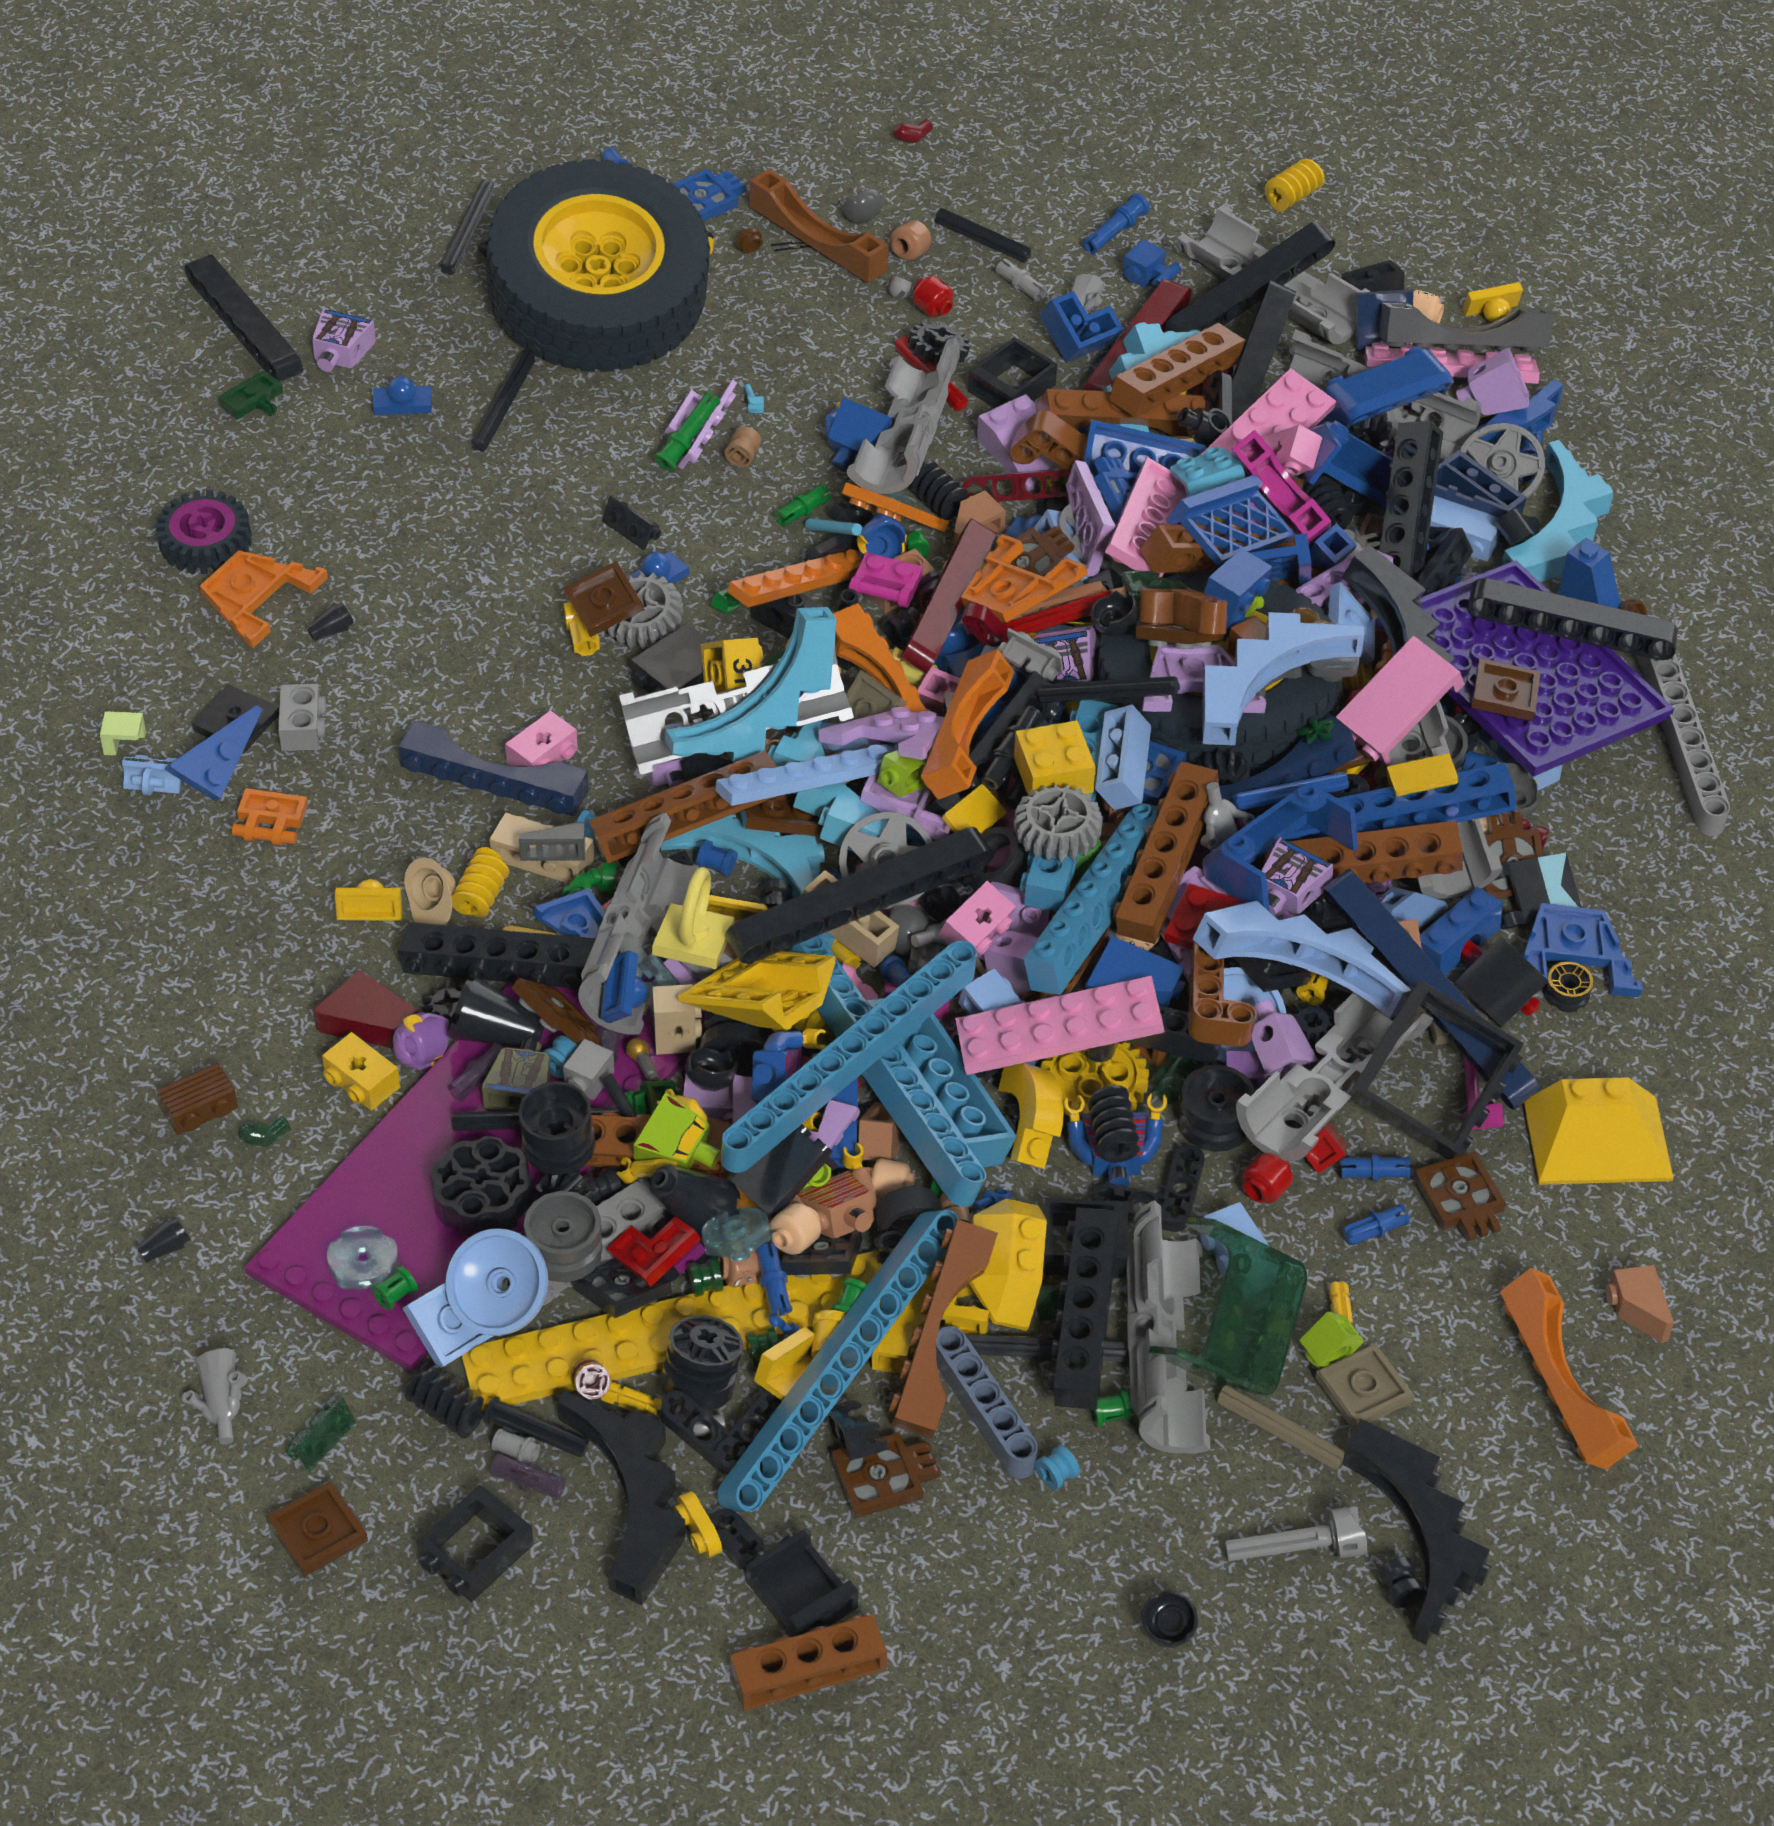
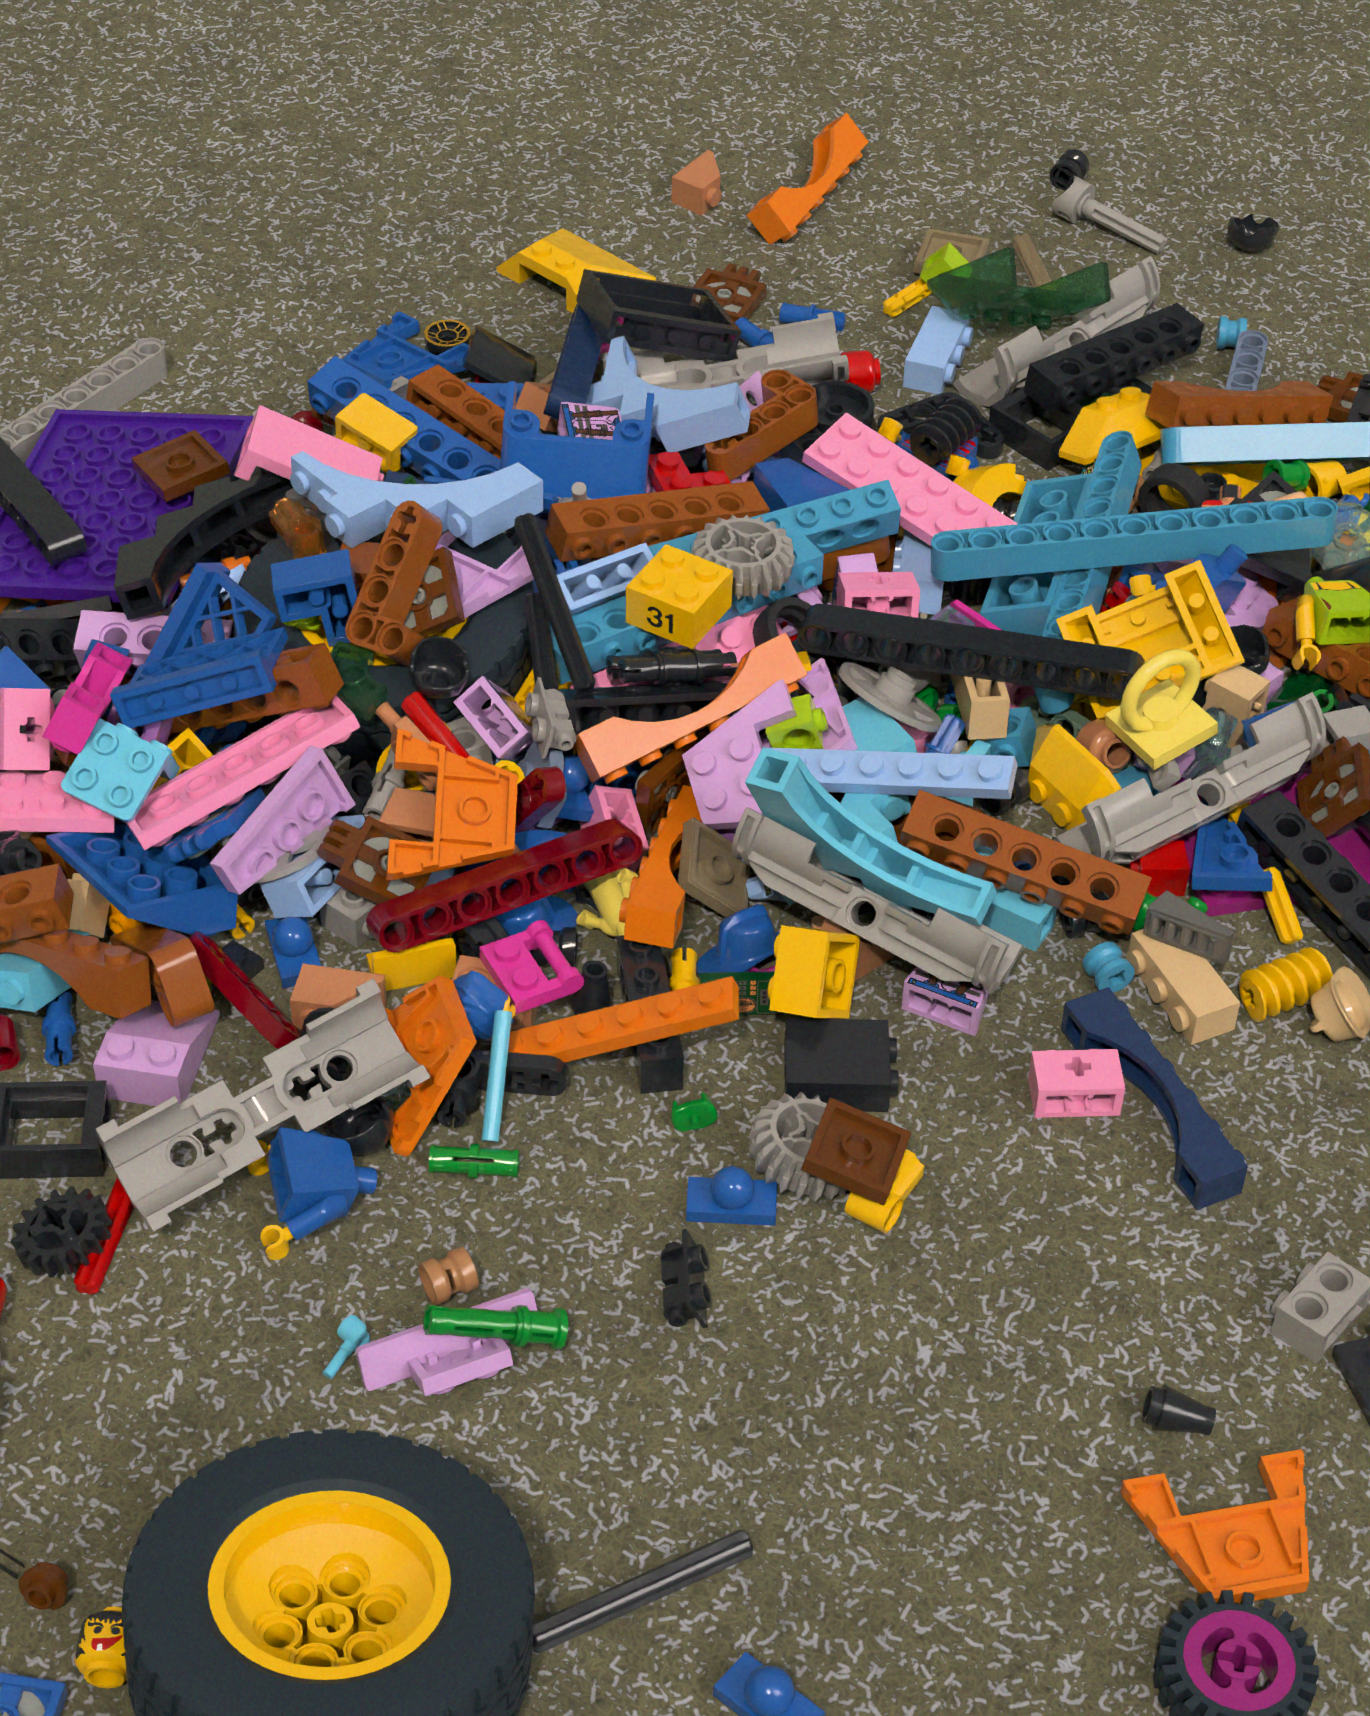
camera: 135 degrees left, 5 degrees down
(1410, 1481) = (1004, 178): black arch -> none

